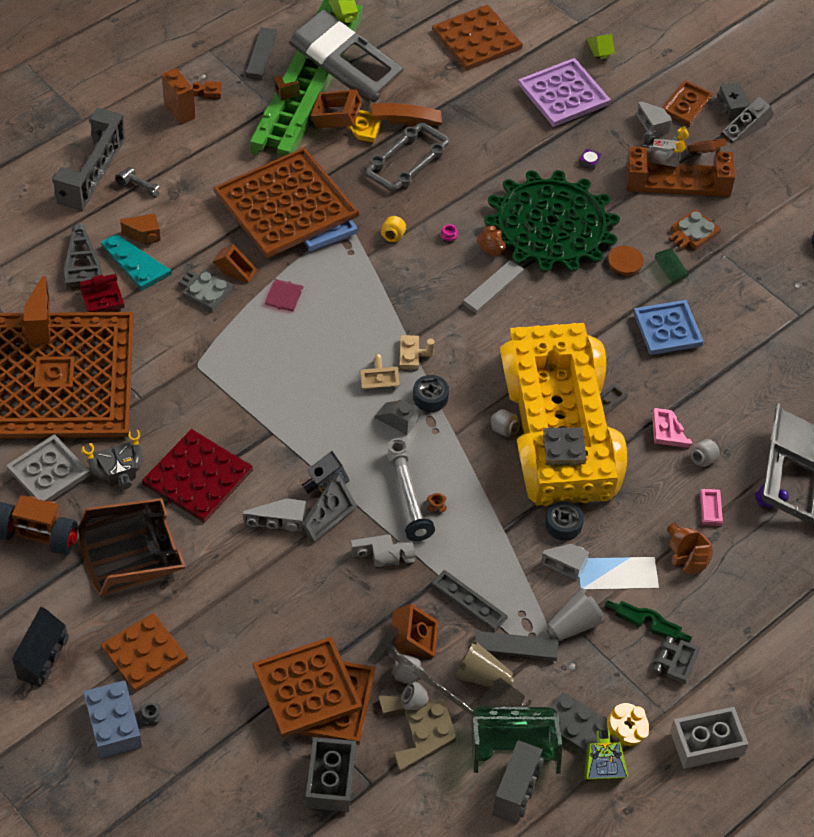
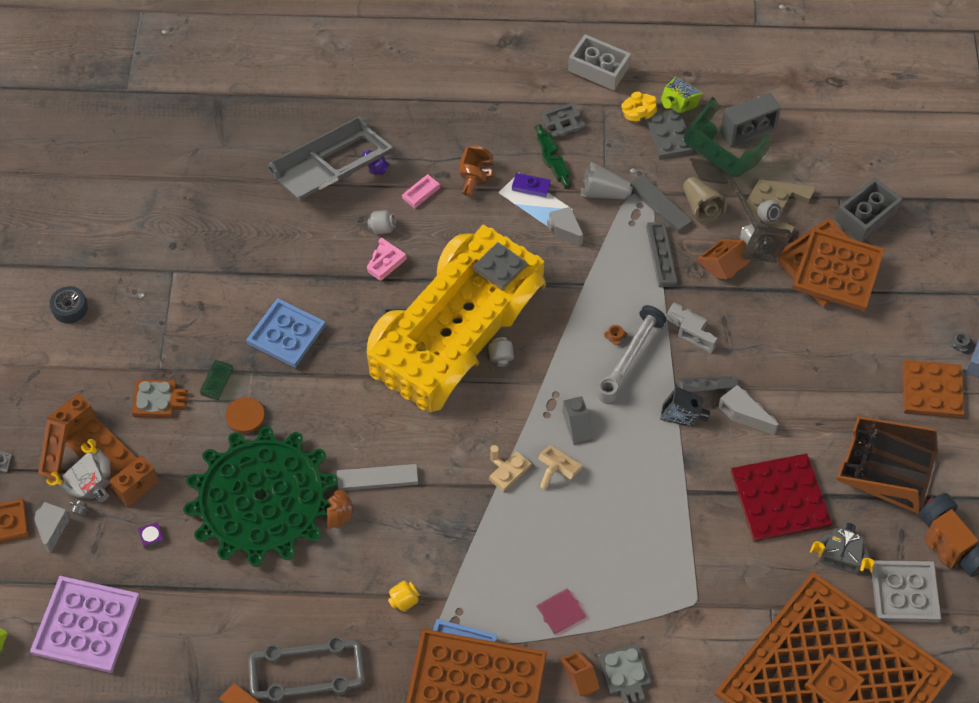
camera: 135 degrees left, 5 degrees up
(430, 401) = (536, 427): black wheel -> none
(449, 232) = (357, 557): dark pink plate -> none
(567, 528) = (541, 246): wheel -> none
(635, 579) = (531, 185): none -> dark purple plate

